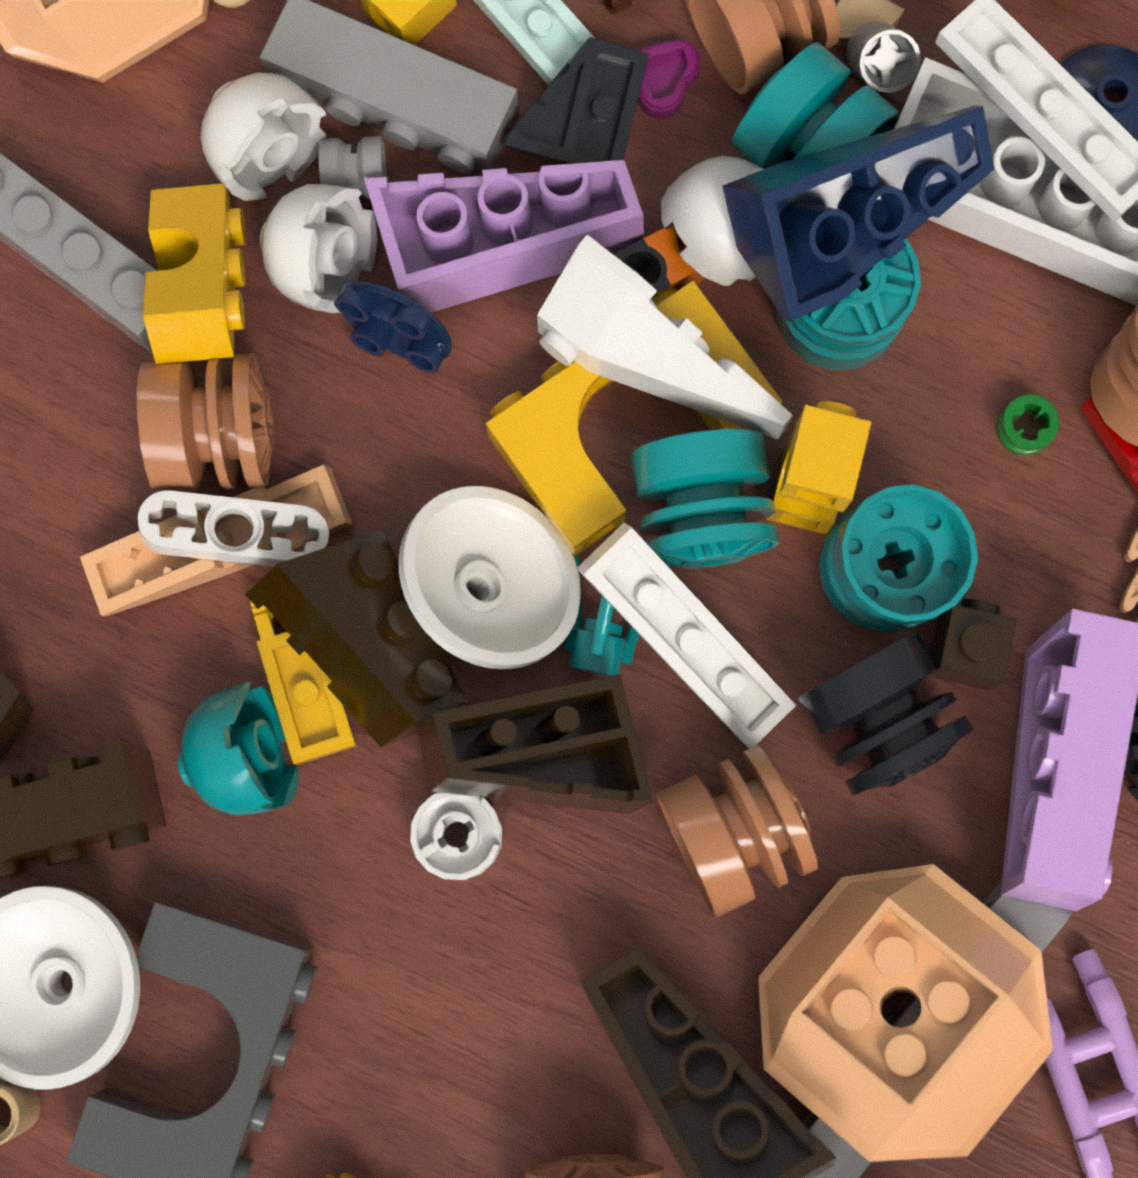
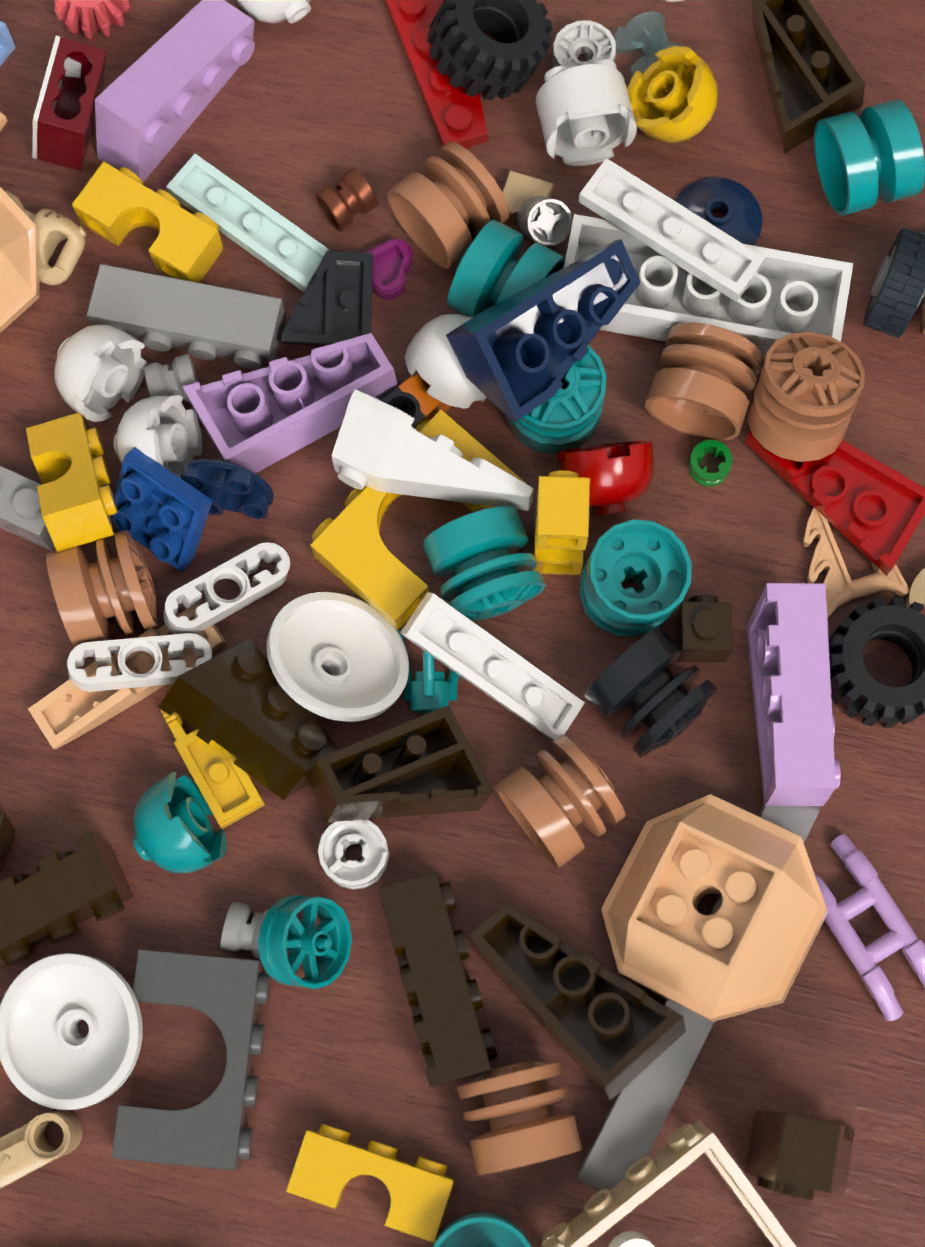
camera: 10 degrees left, 5 degrees down
(300, 334) = (159, 510): none -> blue tile
(304, 906) = (242, 929): none -> light grey wheel
(397, 943) = (284, 933): none -> teal wheel
(414, 456) = (262, 584): none -> white beam
(527, 1029) = (435, 979): none -> dark brown wedge
(906, 409) = (615, 470): none -> red cylinder
(1047, 317) = (704, 381): none -> nougat wheel

